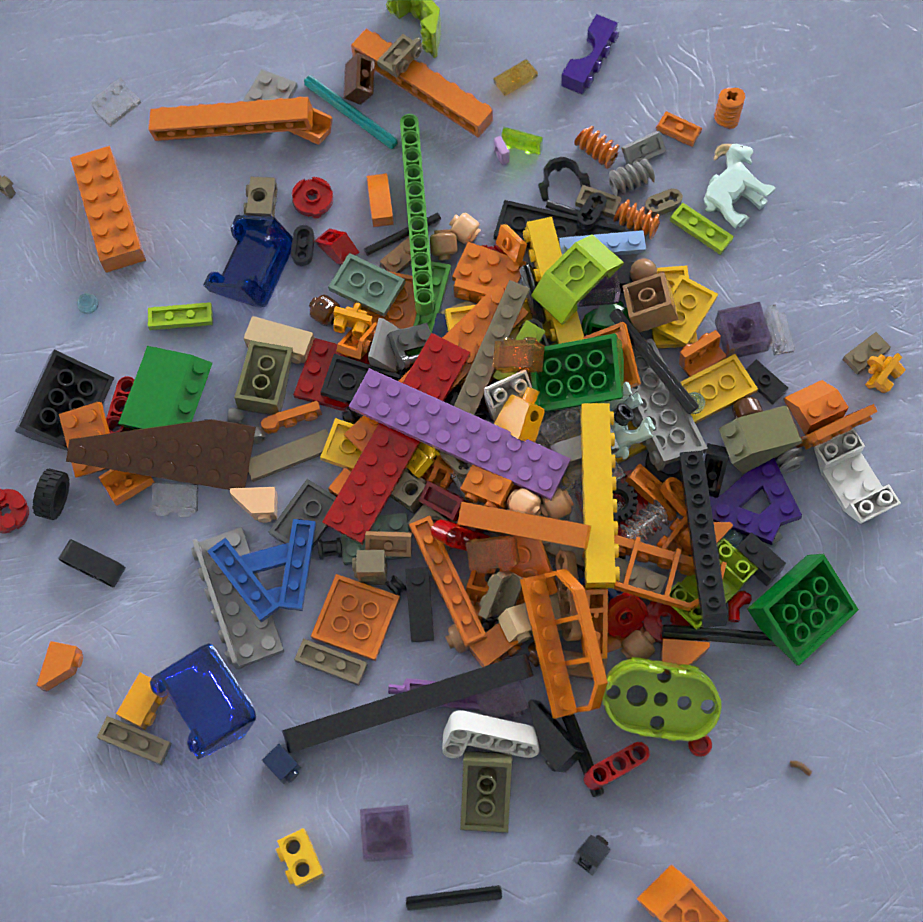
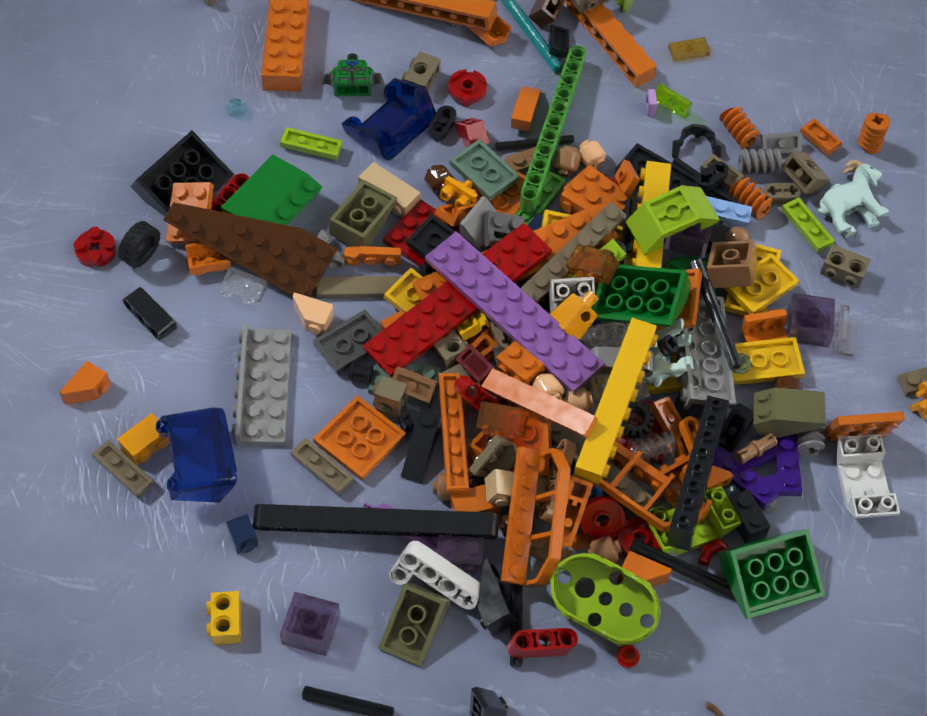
camera: 15 degrees right, 10 degrees down
(193, 228) = (352, 77): none -> torso
(295, 557) = (325, 367): blue plate -> none
(384, 115) = (558, 41): none -> black tile
(580, 72) = (748, 63): dark purple arch -> none
(679, 174) = (805, 172): none -> dark tan brick
(742, 487) = (755, 448): none -> medium nougat pin
(753, 255) = (846, 263): none -> dark tan brick
(766, 382) = (816, 373): black plate -> none
(816, 406) = (853, 402): orange slope -> none

